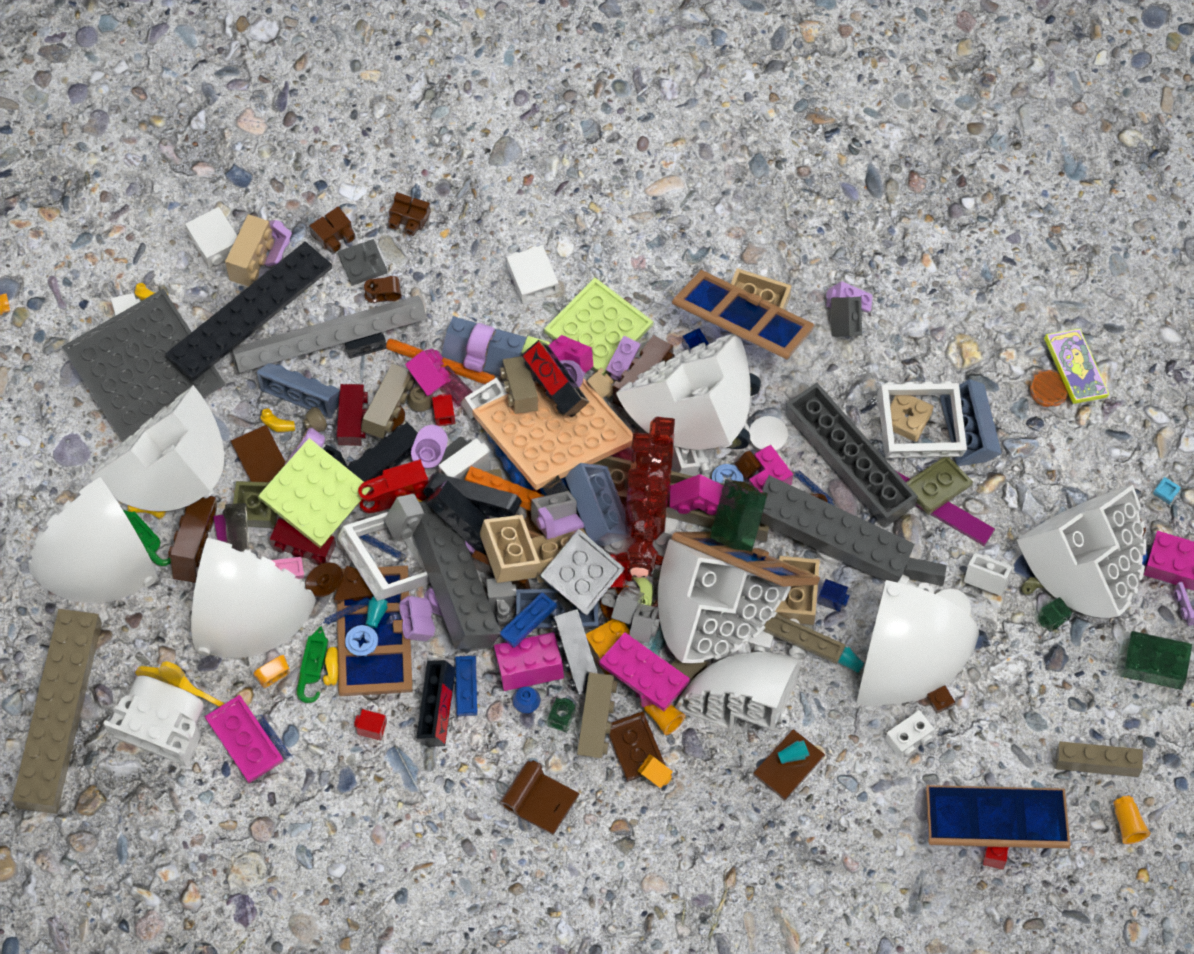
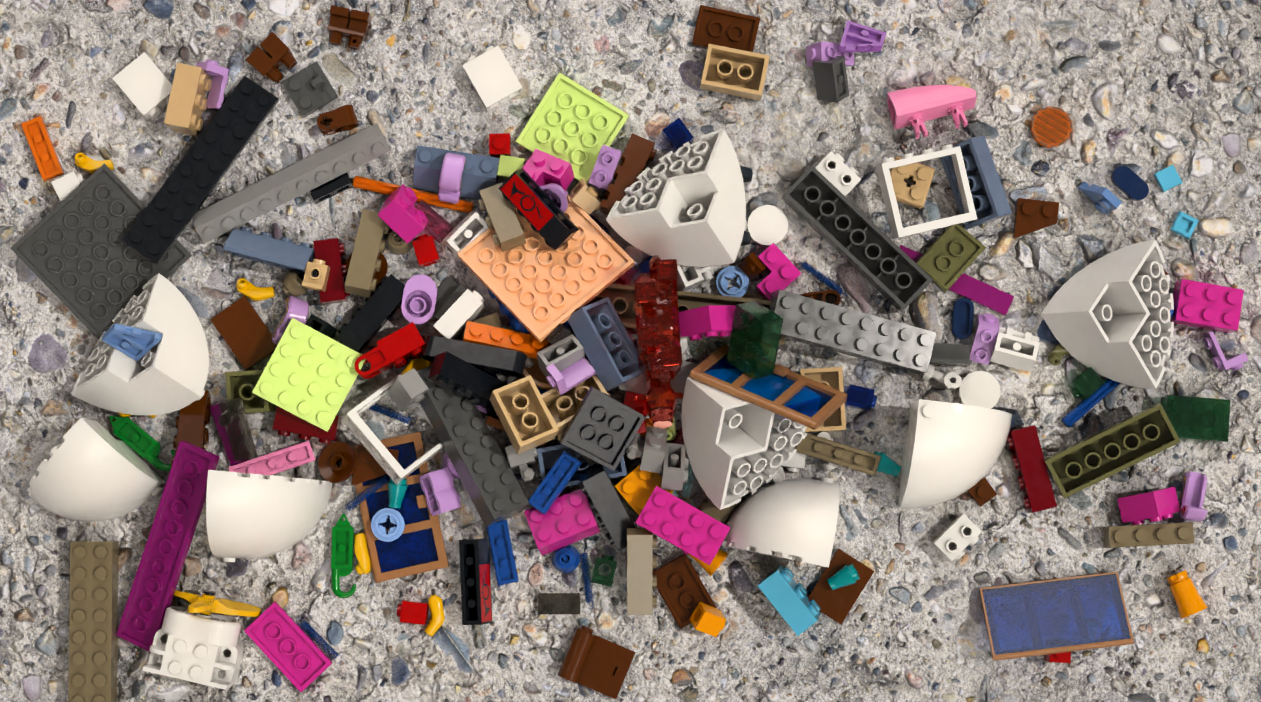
camera: 10 degrees left, 20 degrees up
(107, 275) = (42, 148): none -> orange plate
(148, 623) = (167, 545): none -> magenta plate
(157, 431) = (131, 340): none -> medium blue wing
(272, 671) = (303, 572): light orange piece -> none
(338, 415) = (316, 283): none -> tan brick
(393, 731) = (437, 615): none -> yellow arm
(513, 740) = (558, 603): none -> clear smoke tile
(529, 327) = (499, 144): none -> red brick
(544, 704) = (585, 571): none -> blue piece
(738, 761) = (790, 599): none -> medium azure brick
(743, 314) = (725, 104): door -> none
(754, 261) = (725, 29): none -> reddish brown tile
(843, 396) = (838, 173): none -> white brick
(879, 287) = (861, 38): none -> medium lavender wing
(935, 350) = (930, 102): none -> bright pink piece
(942, 542) = (962, 318): none -> dark blue tile
(959, 561) = (984, 338): none -> lavender bracket
(991, 683) = (1031, 469): none -> dark red brick
(1023, 462) = (1033, 216): none -> reddish brown wing
(1058, 632) = (1083, 407): none -> blue axle
(1071, 670) = (1112, 450): none -> olive brick
(1076, 366) = (1076, 98): tile -> none
(1089, 451) = (1103, 198): none -> medium blue wing
(1104, 728) = (1150, 505): none -> dark pink brick
(1118, 447) = (1129, 183): none -> dark blue tile
(1147, 730) = (1193, 496): none -> lavender animal
(1155, 447) = (1167, 178): none -> medium azure tile

